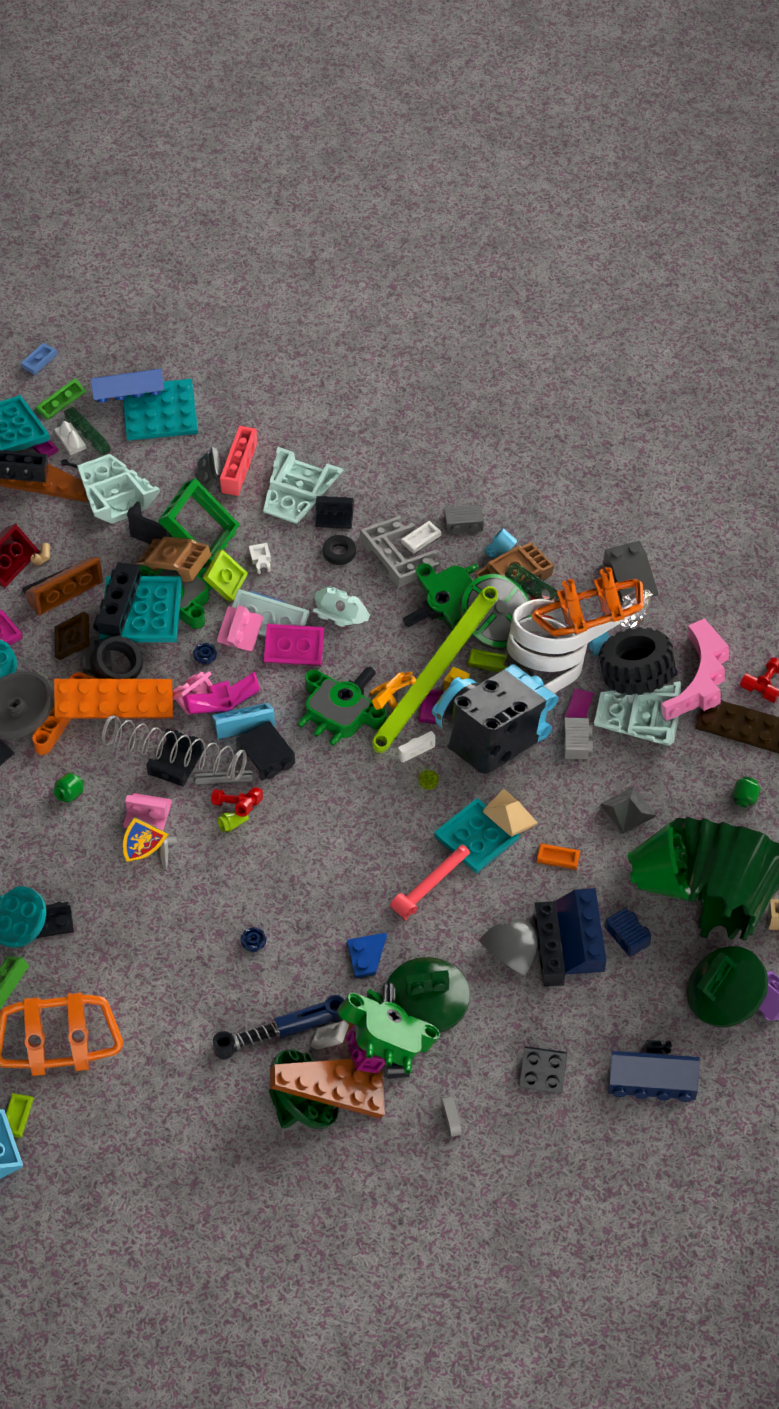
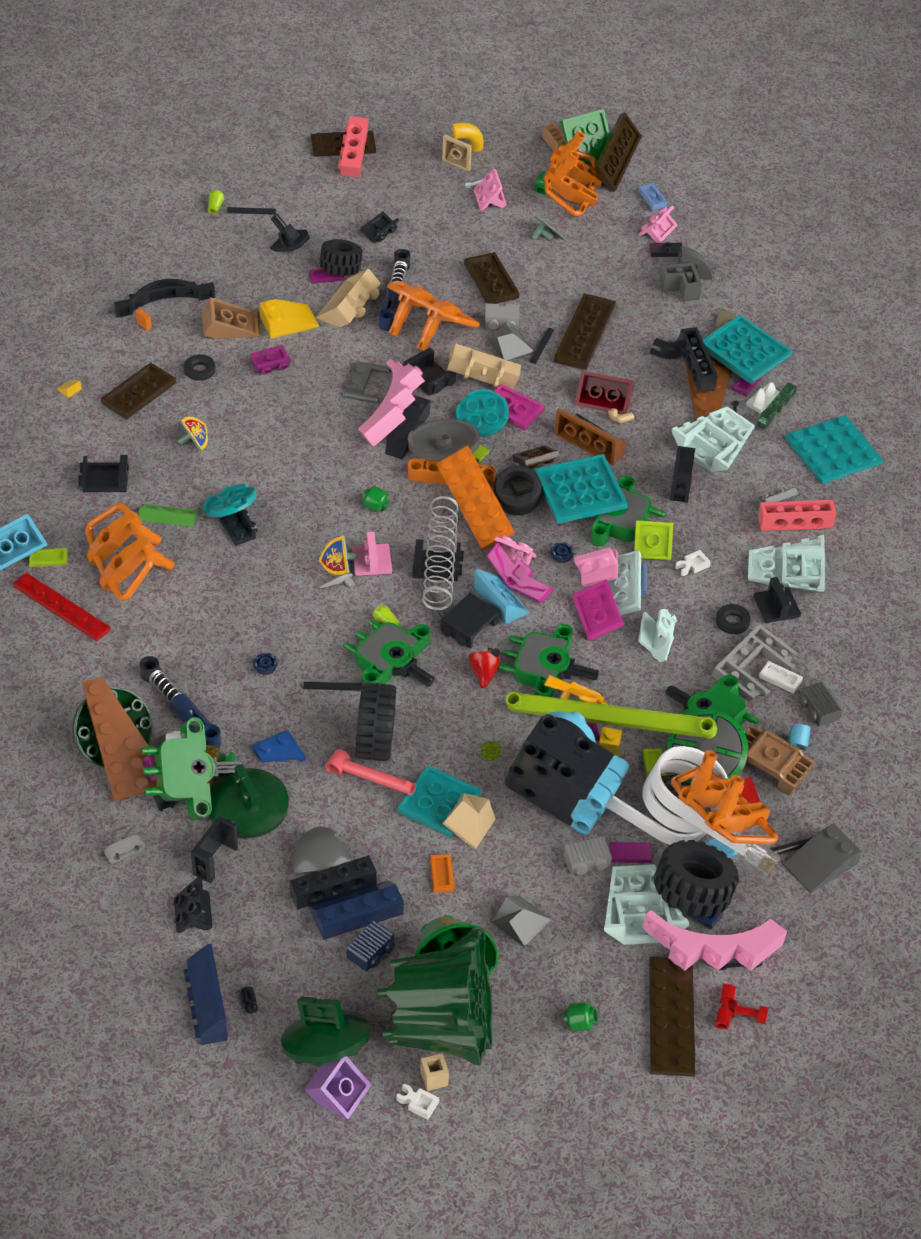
camera: 70 degrees right, 5 degrees down
(38, 358) = (844, 352): medium blue plate -> none
(59, 398) = (806, 379): bright green slope -> none
(96, 1116) = (61, 606): none -> red plate
(118, 599) = (576, 465): black brick -> none
(127, 384) = (840, 412): slope -> none
(176, 554) = (650, 498): medium nougat plate -> none
(211, 506) = (694, 531): green window -> none
(243, 802) = (405, 616): red bar -> none
(283, 828) = (391, 652): none -> piece
(301, 889) = (332, 686): none -> black bar
(328, 752) = (485, 665): none -> red hat
(386, 851) = (375, 721): none -> black tyre
(416, 746) = (517, 726): white plate -> none
(493, 1047) = (220, 832): none -> black panel
(539, 584) = (755, 778): clear green beam -> none

